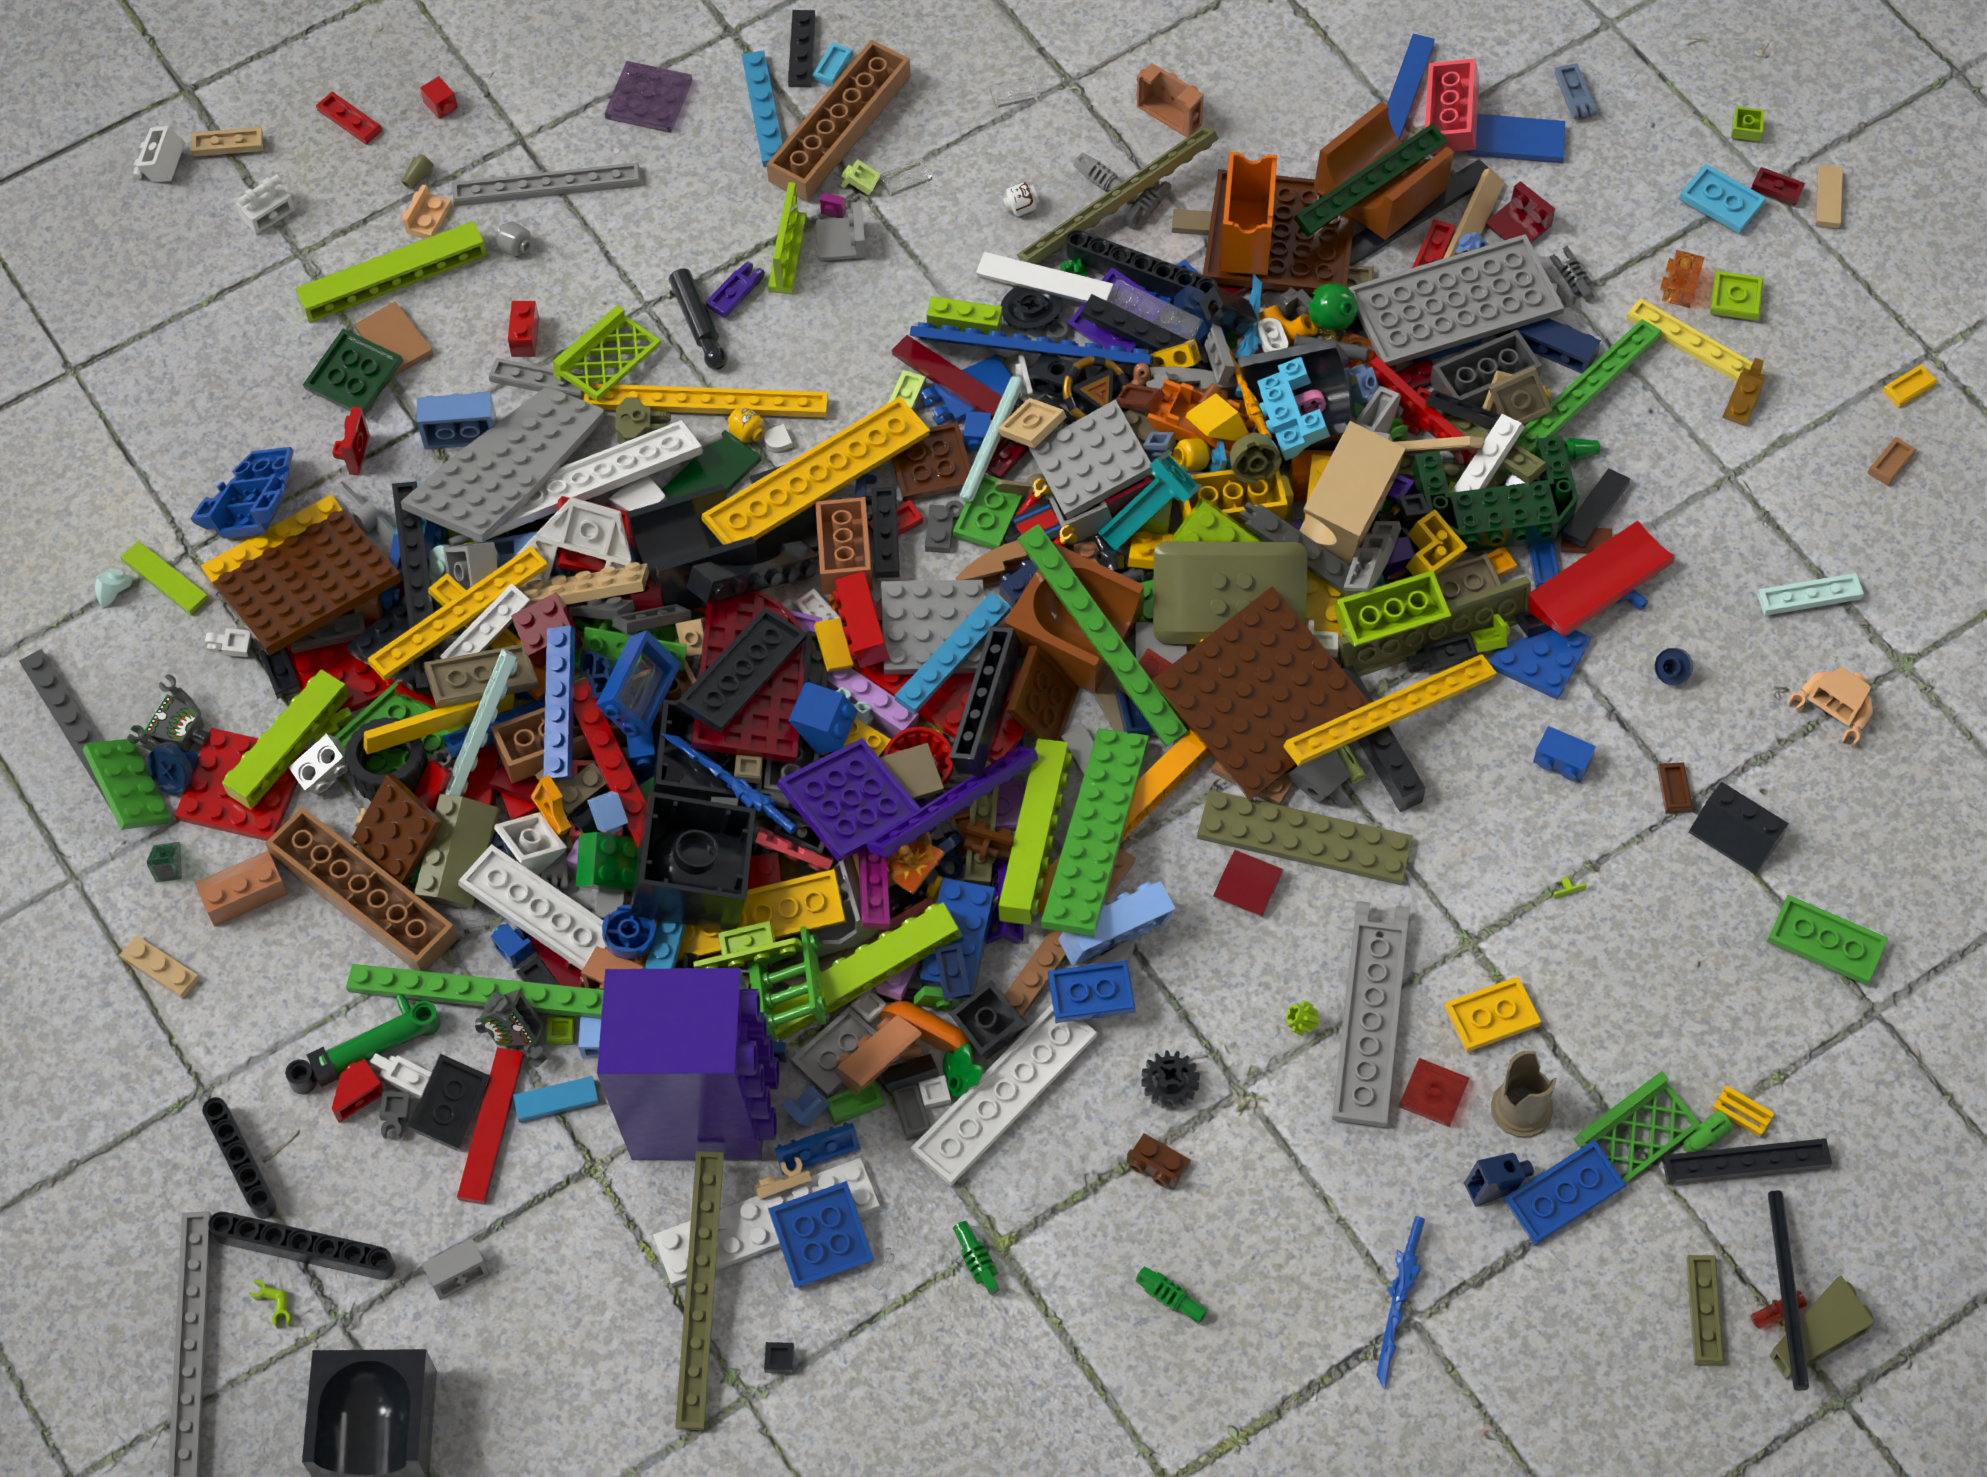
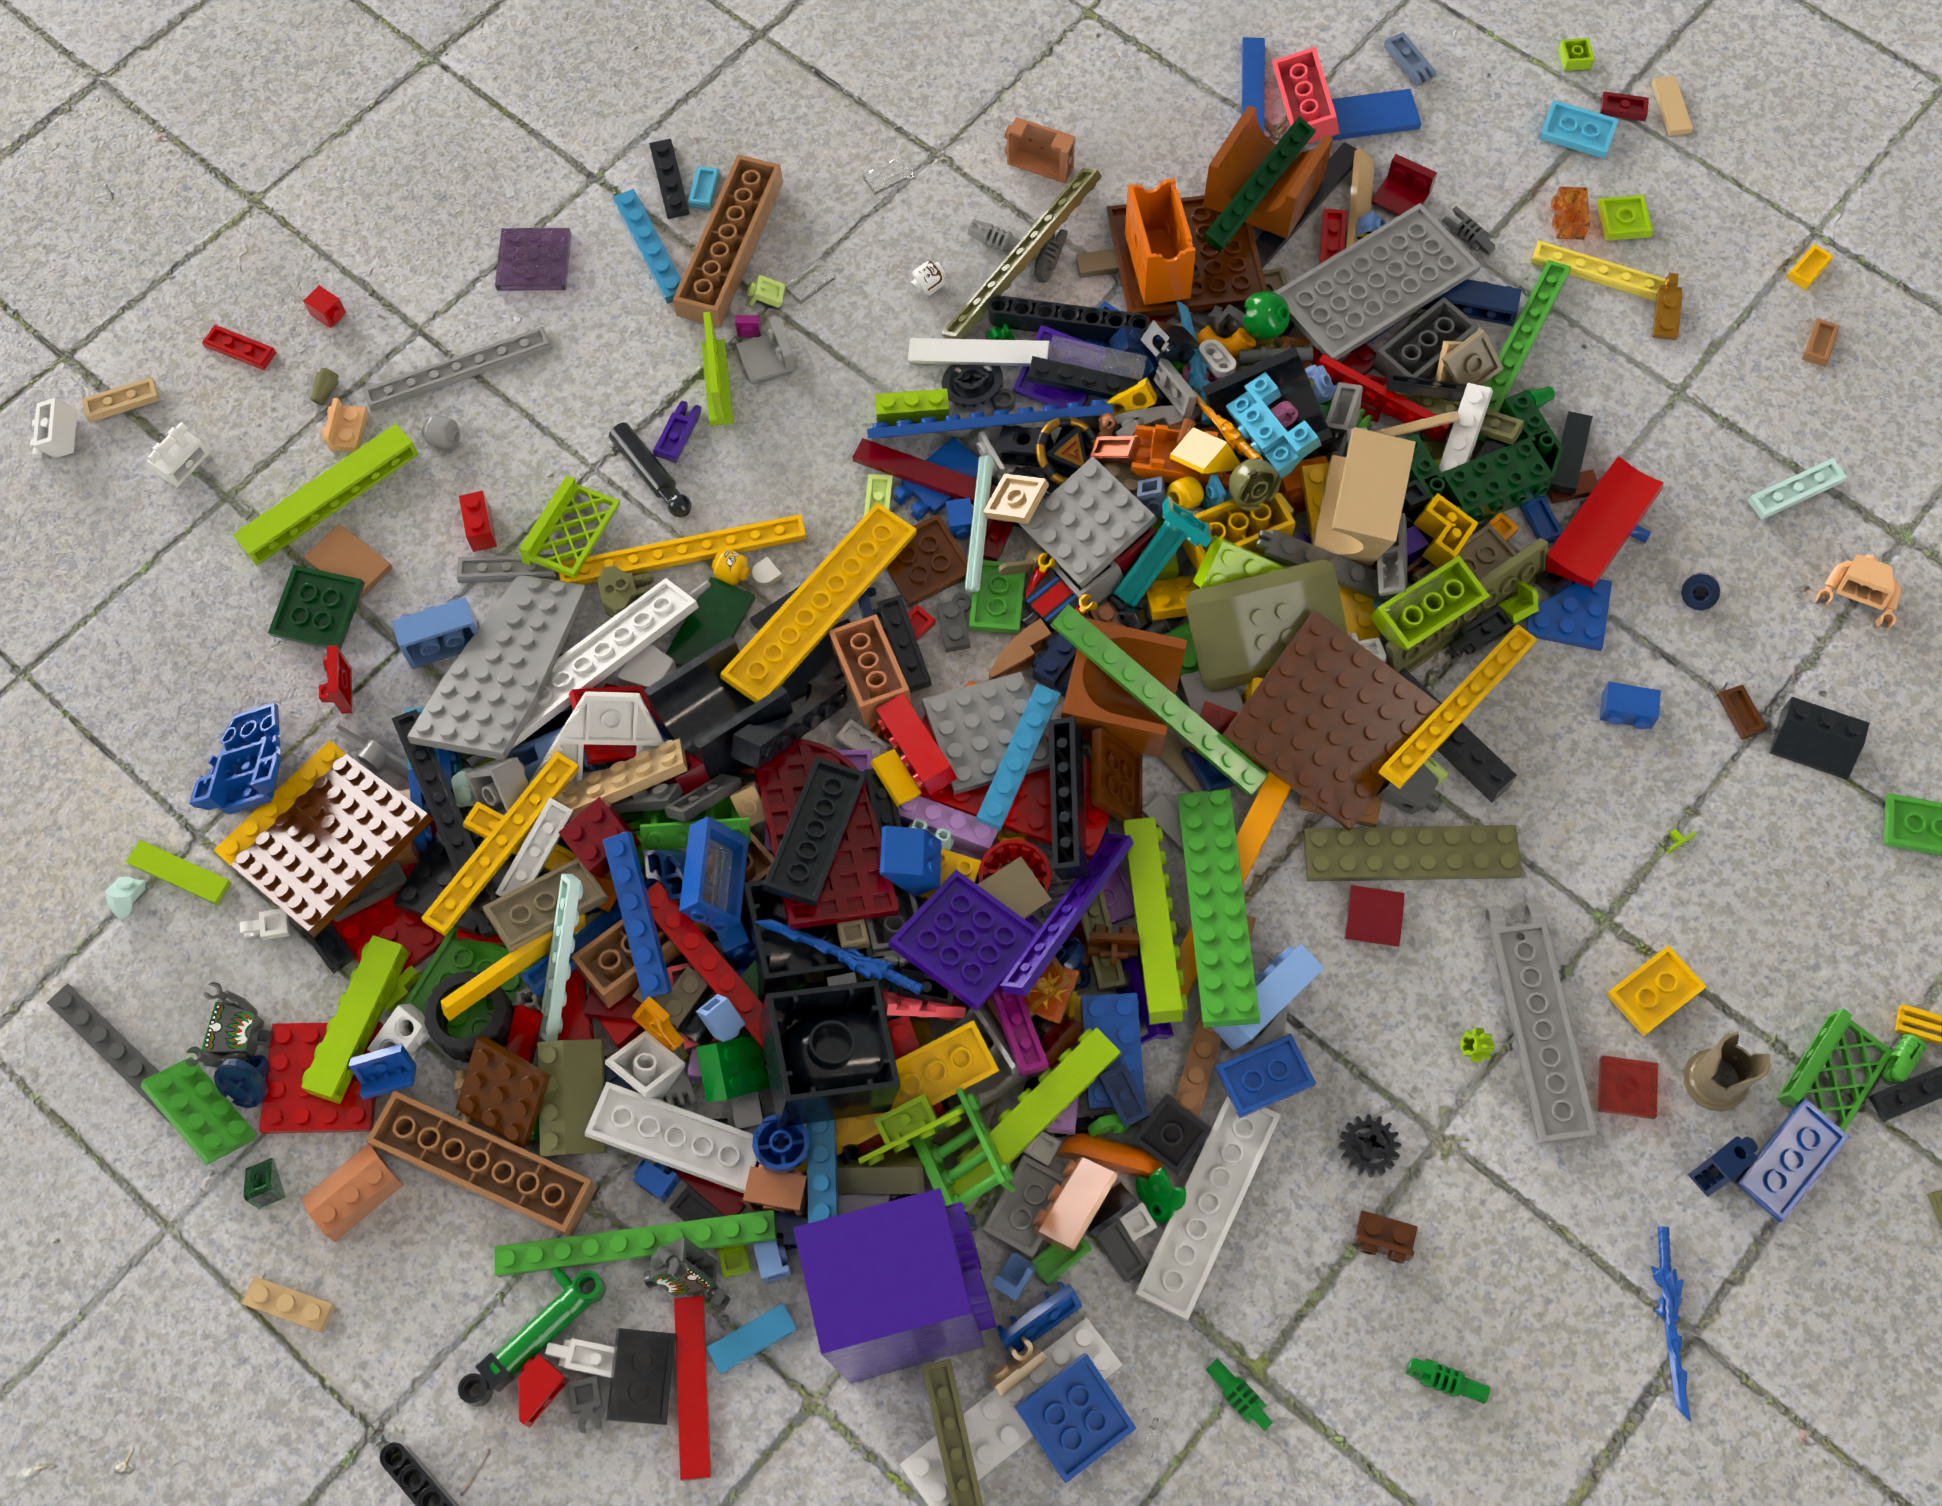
camera: 15 degrees left, 5 degrees up
(298, 787) = (383, 1071): none -> blue bracket

